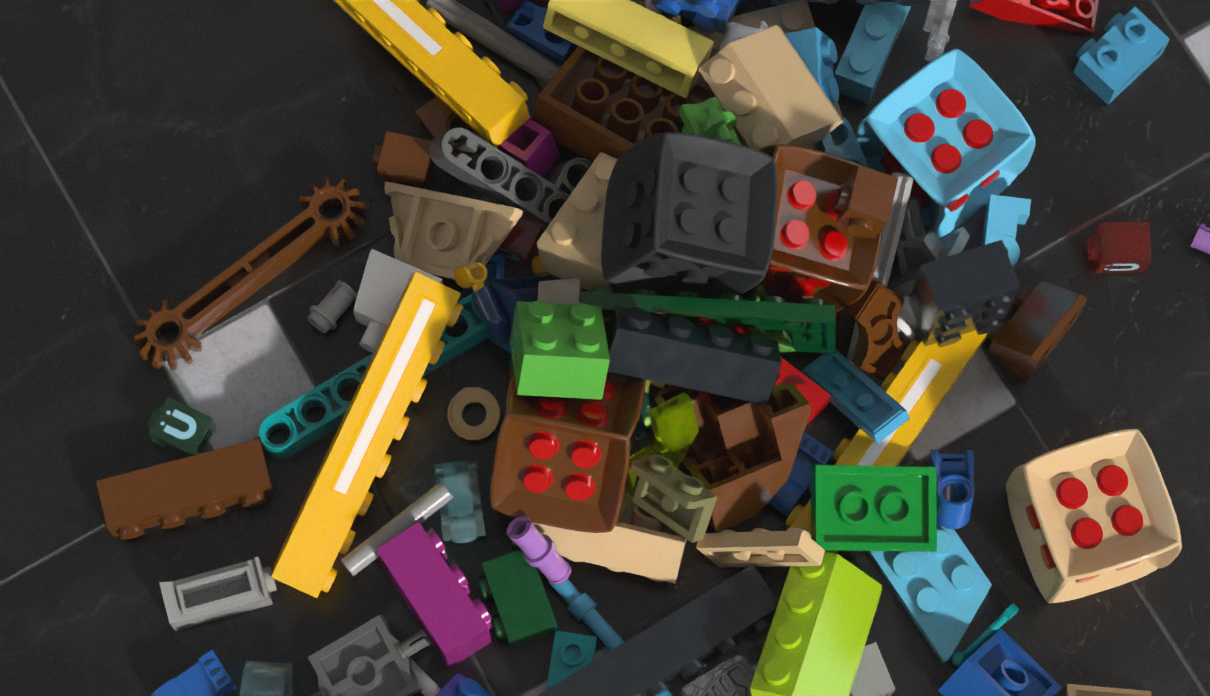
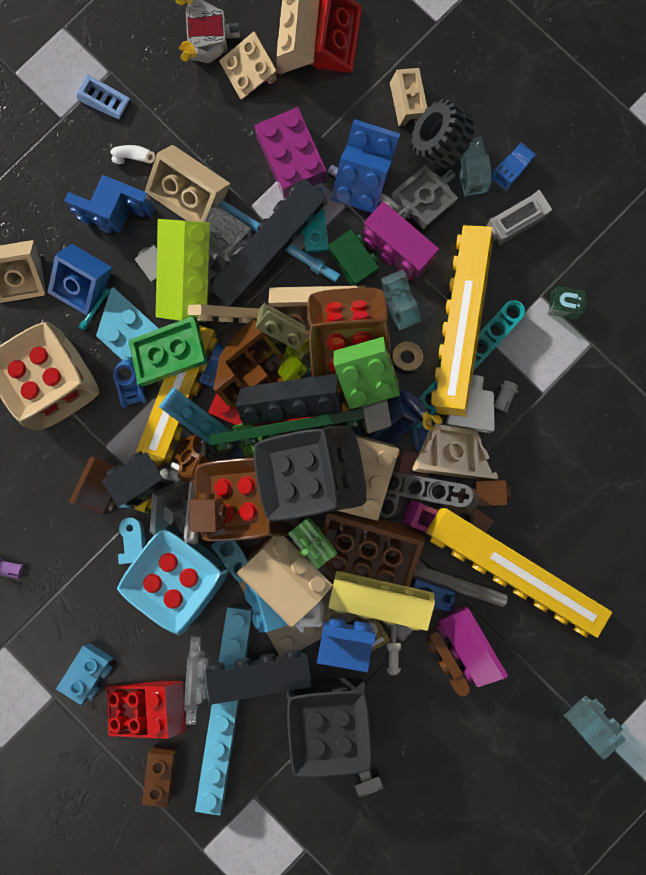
camera: 170 degrees right, 10 degrees up
(185, 489) = (554, 270): reddish brown brick -> none
(249, 273) = (559, 401): reddish brown arm -> none
(415, 513) = (430, 272): light grey piece -> none
(539, 550) = (348, 278): medium lavender pin -> none
(1120, 247) = (62, 551): clear red brick -> none

